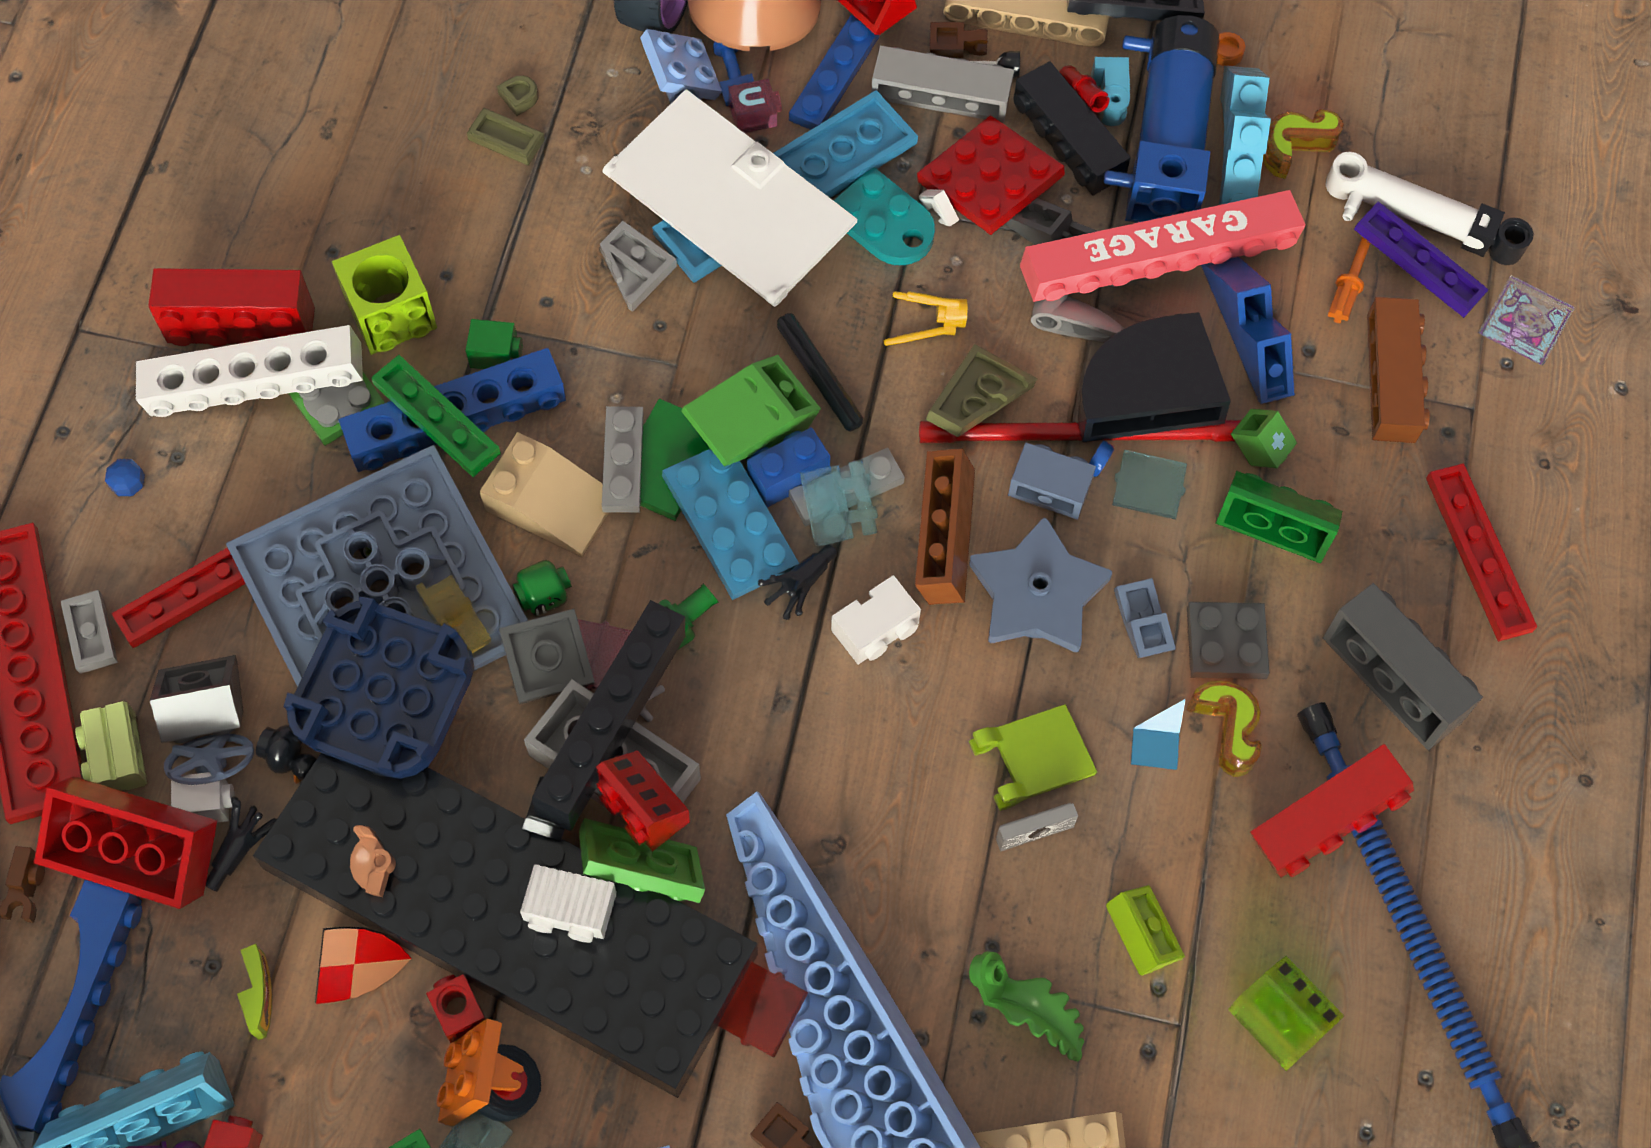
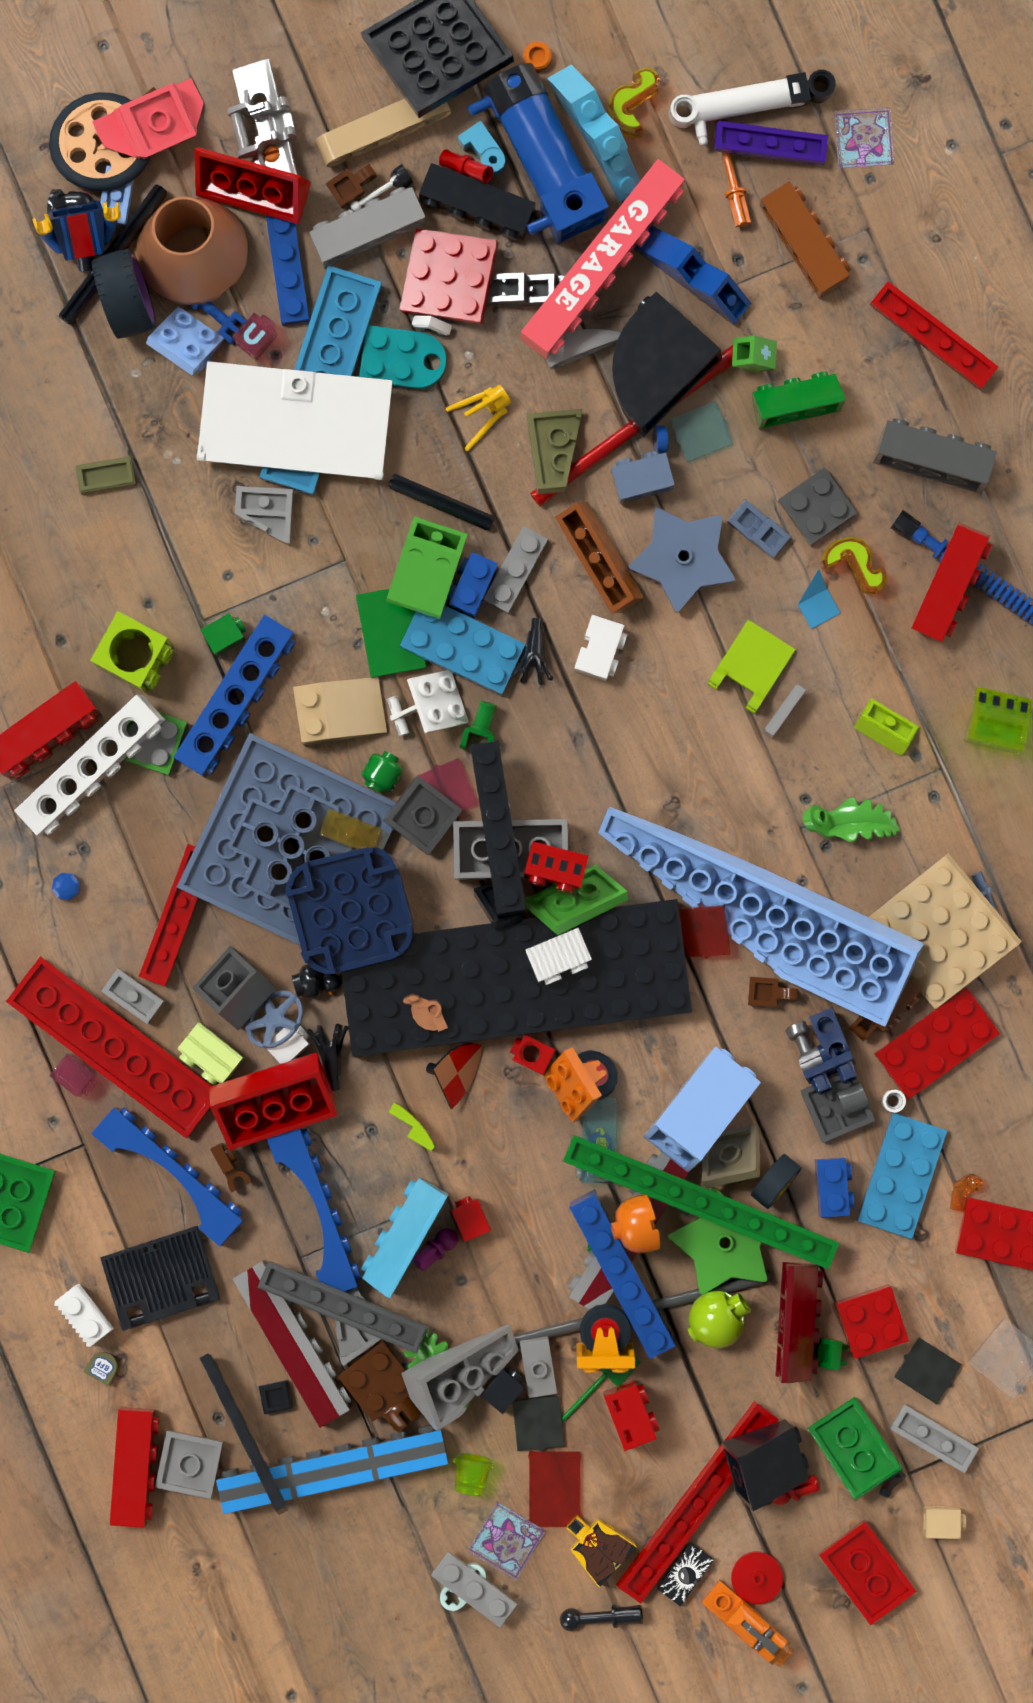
camera: 30 degrees left, 20 degrees up
(436, 415) = (235, 713): green plate -> none
(519, 93) = (88, 436): olive tile -> none
(622, 459) = (367, 653): light grey plate -> none
(653, 553) = (435, 701): none -> white plate
(828, 505) = (516, 594): clear light blue plate -> none

